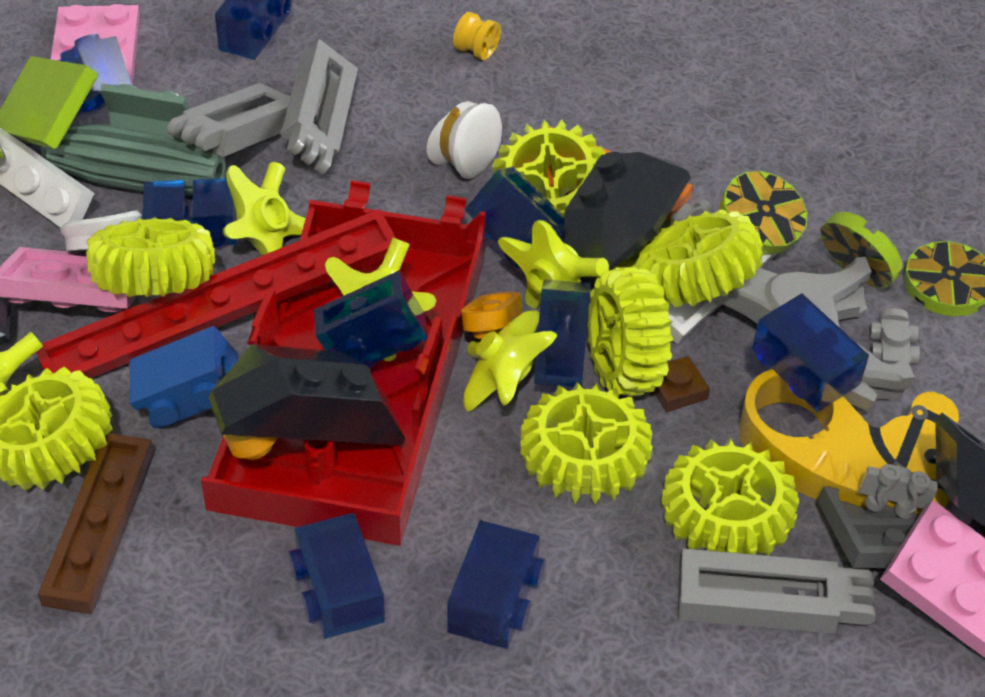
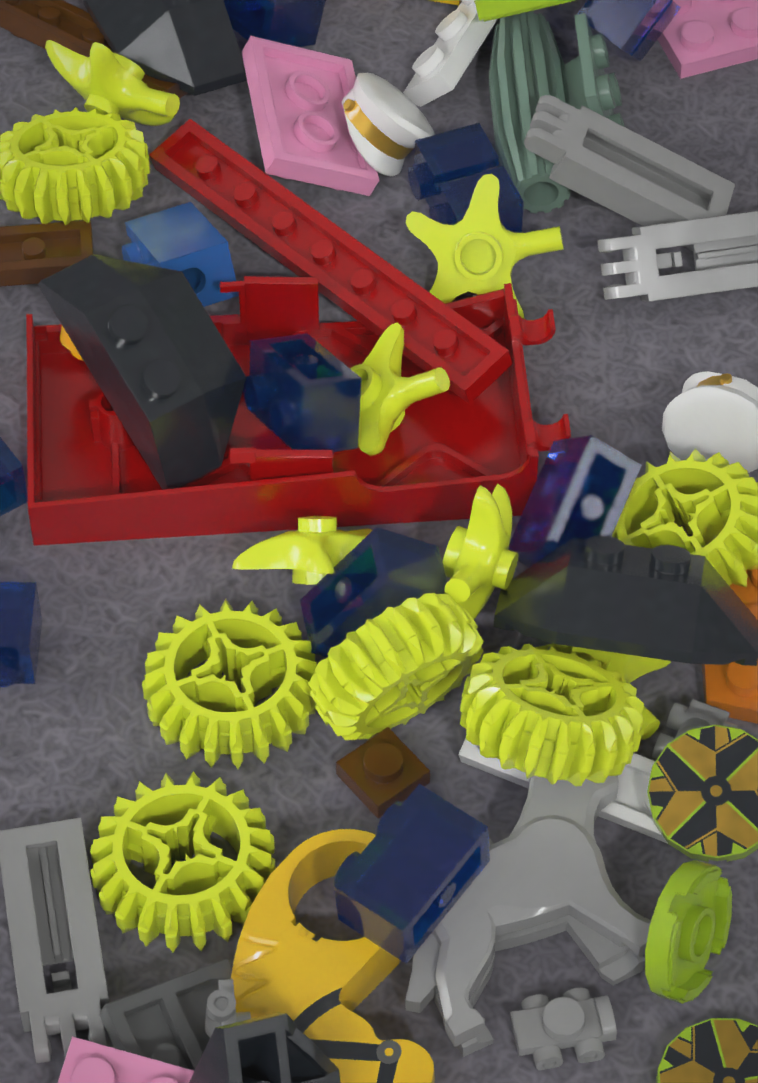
camera: 75 degrees right, 5 degrees up
(150, 257) = (327, 157): neon yellow gear -> none
(491, 312) = (391, 511): light orange plate -> none

